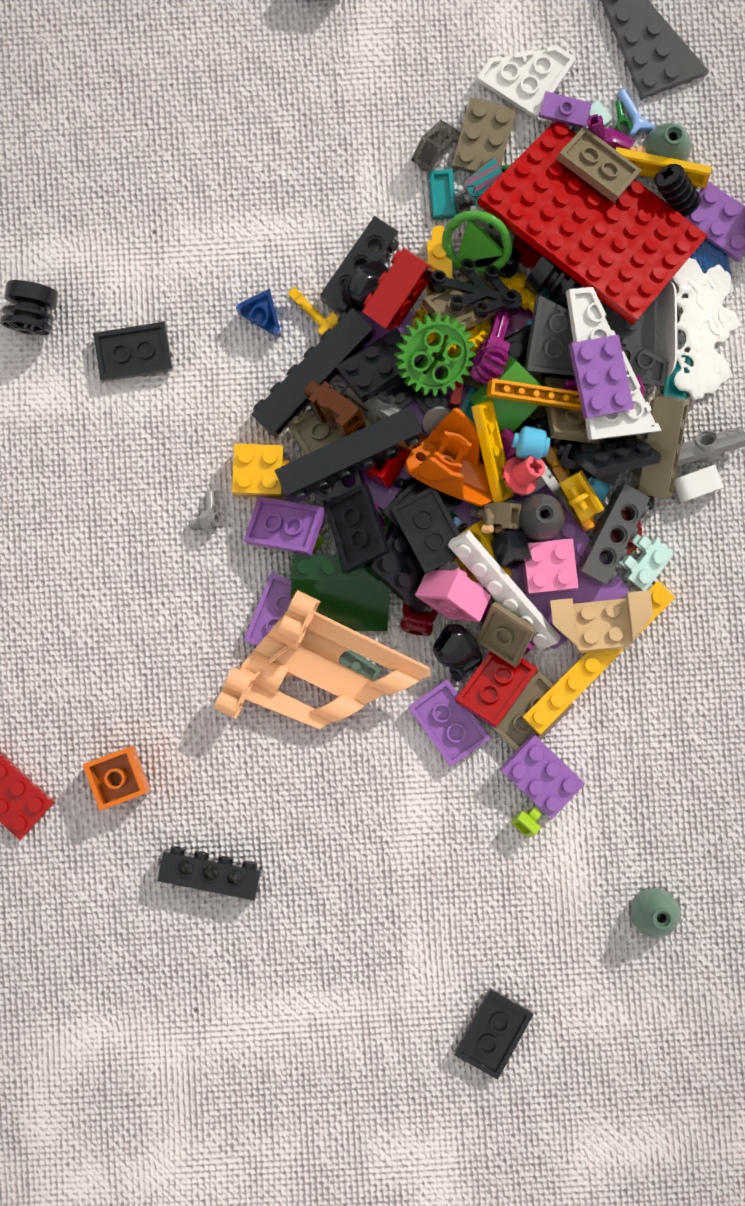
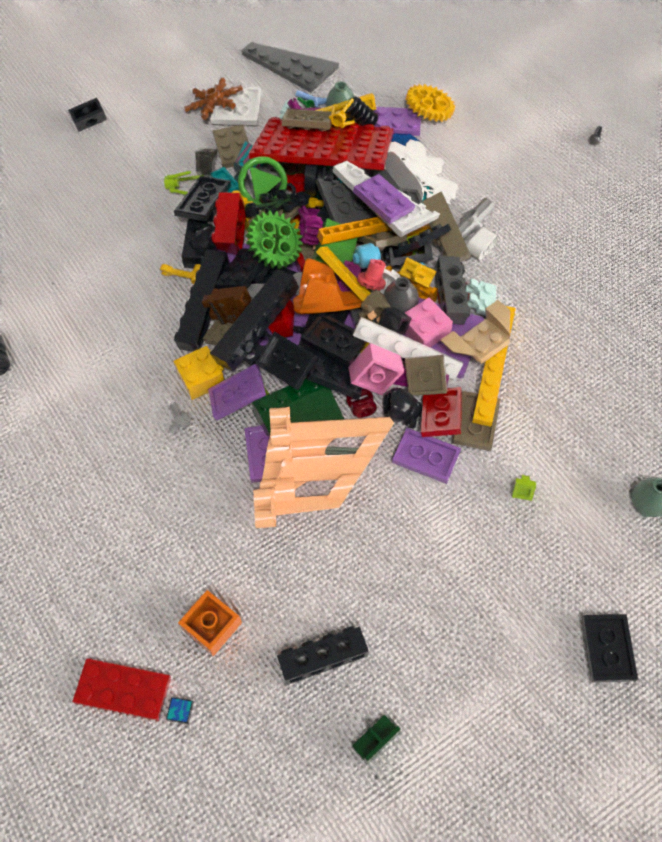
camera: 30 degrees left, 25 degrees down
(46, 842) = (180, 710): none -> tile
(133, 351) = (73, 350): black plate -> none
(214, 982) = (376, 739): none -> dark green panel
(261, 312) = (148, 285): blue slope -> none
(375, 157) = (173, 181): none -> lime plant
(393, 216) = (201, 198): none -> black tile
(500, 42) = (213, 97): none -> dark orange piece
(542, 776) = (512, 452): medium lavender plate -> none
(565, 109) = (270, 109): medium lavender plate -> none
(635, 194) = (339, 117): none -> yellow plant

